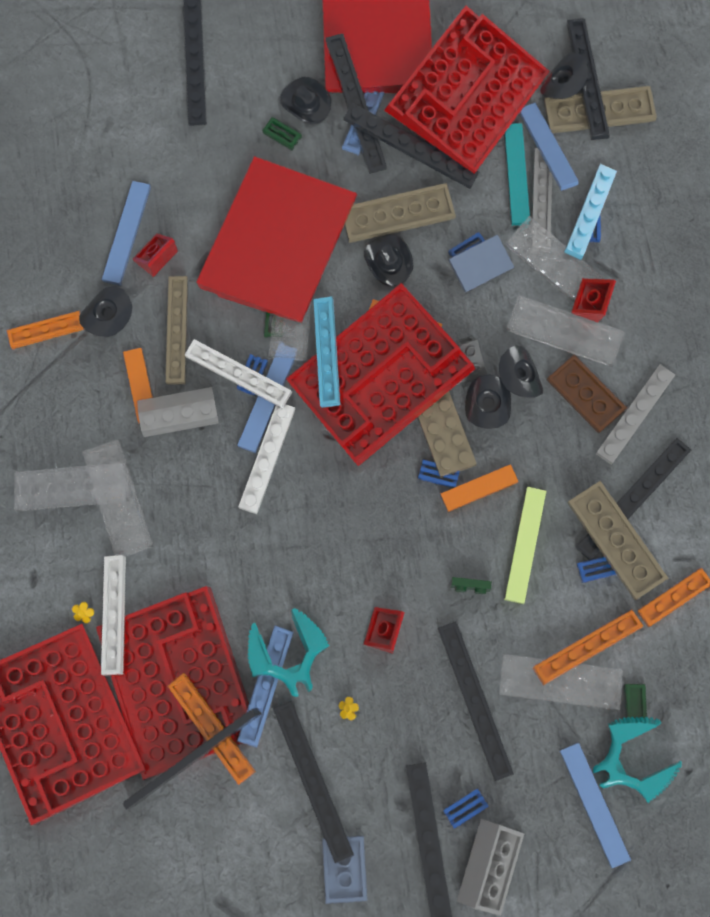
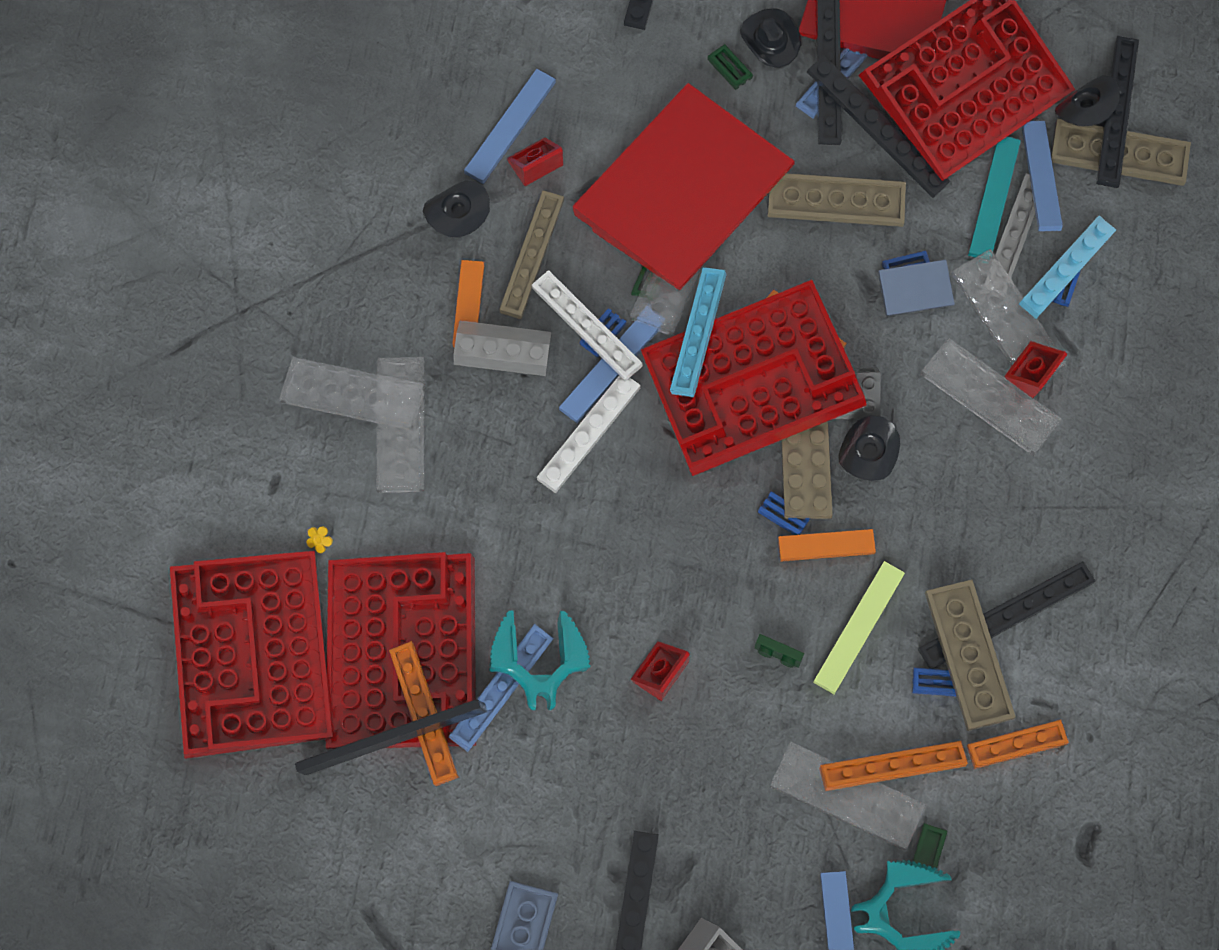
camera: 15 degrees right, 5 degrees down
(44, 330) = (379, 208): orange tile -> none
(113, 615) = (353, 552): white plate -> none
(313, 782) = (520, 814): black tile -> none
(348, 708) = (588, 745): yellow plant -> none
(389, 259) = (808, 250): black hat -> none
(475, 701) = (740, 786): black tile -> none
(480, 799) = (708, 897): blue tile -> none
(519, 373) = (918, 426): black hat -> none
(586, 394) = (991, 477): reddish brown tile -> none
(635, 414) = (1042, 519): light grey plate -> none

